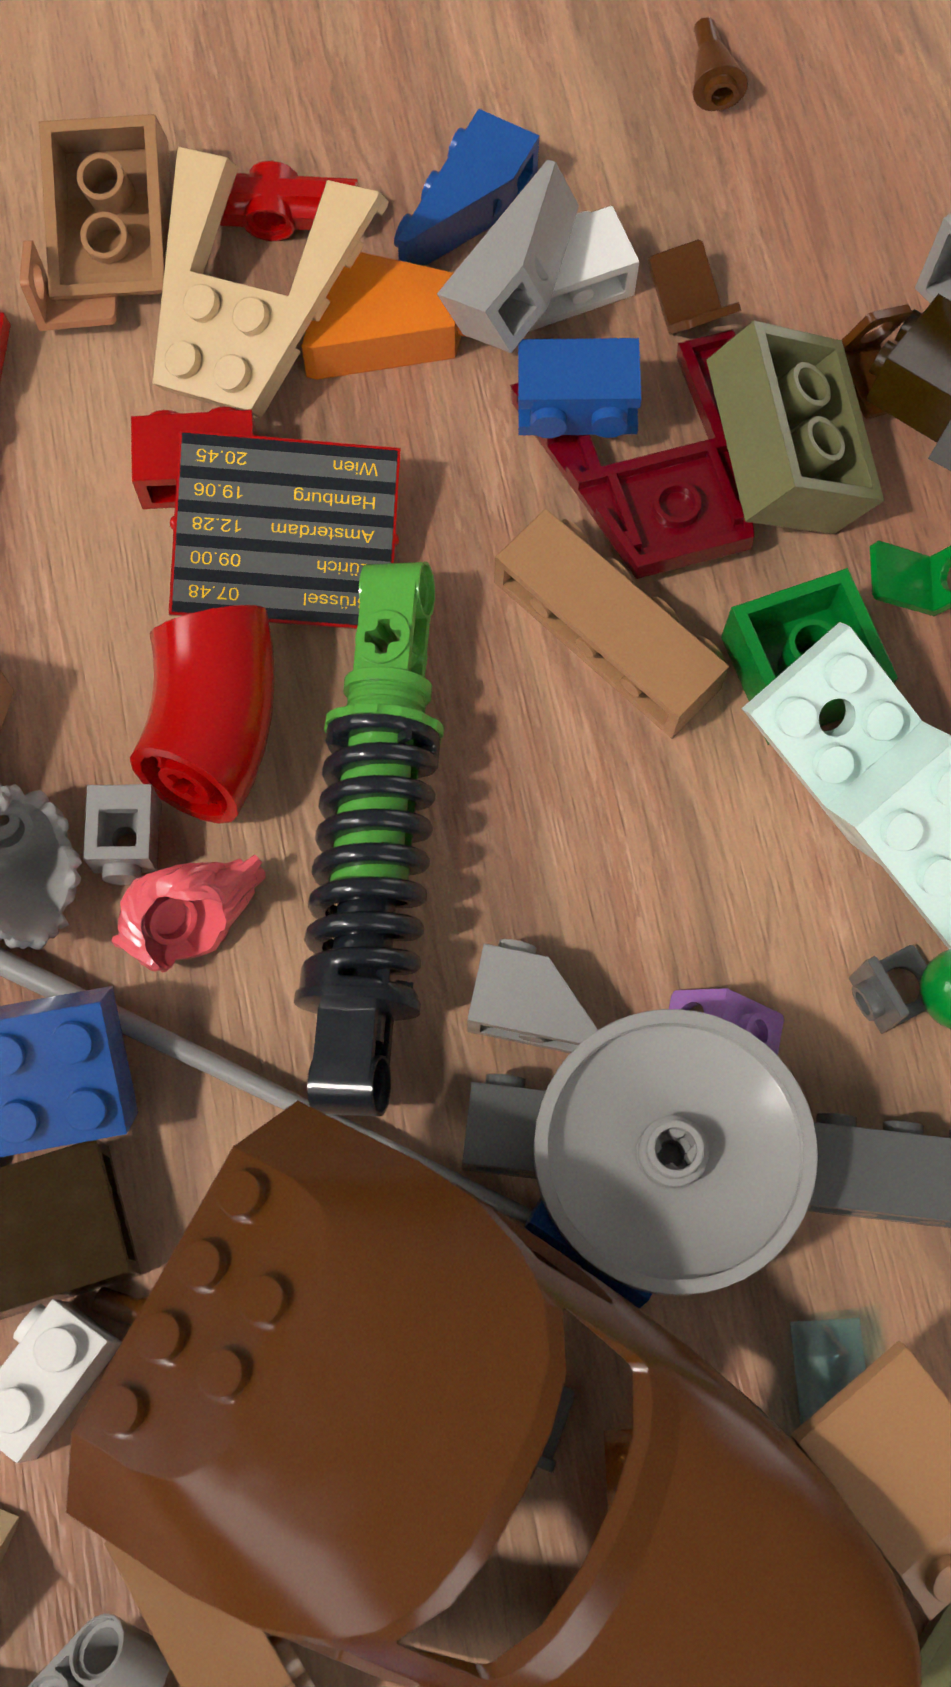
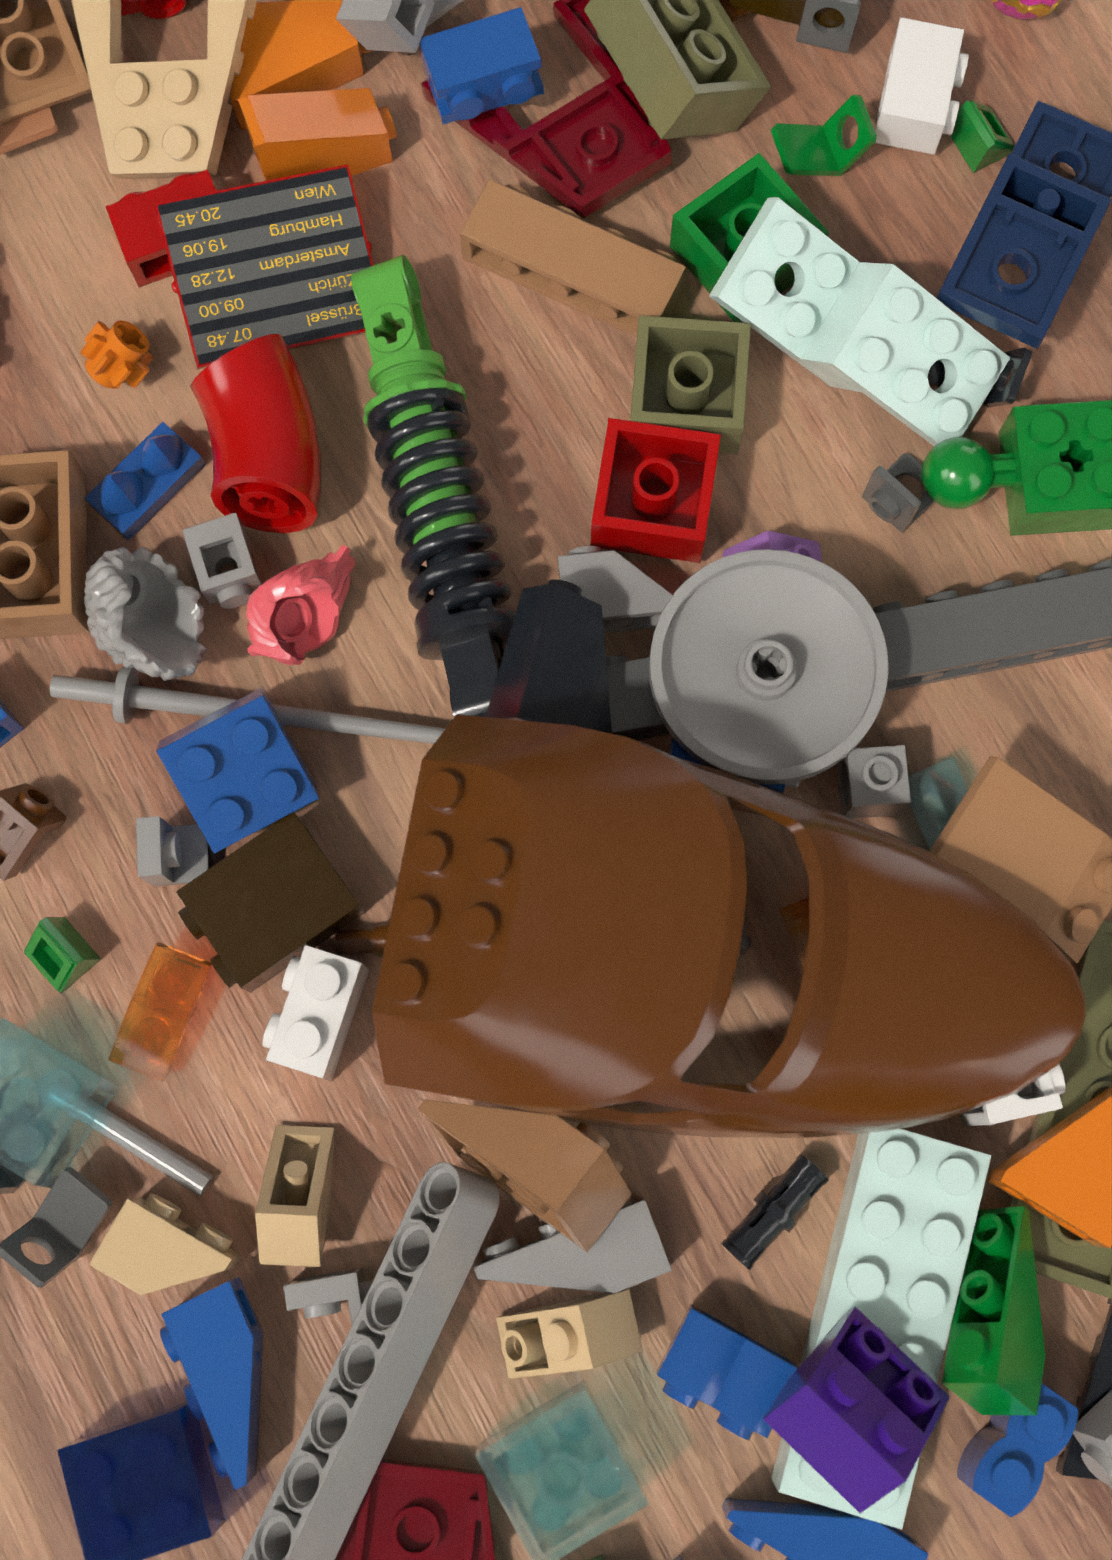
camera: 15 degrees left, 5 degrees up
(73, 717) = (145, 480): none -> blue tile
(89, 574) = (116, 354): none -> orange gear
(380, 404) = (318, 131): none -> orange slope
(434, 1076) = (554, 661): none -> black slope
(615, 902) = (654, 490): none -> red brick
(691, 796) = (692, 376): none -> olive brick
(759, 1318) = (874, 782): none -> light grey brick

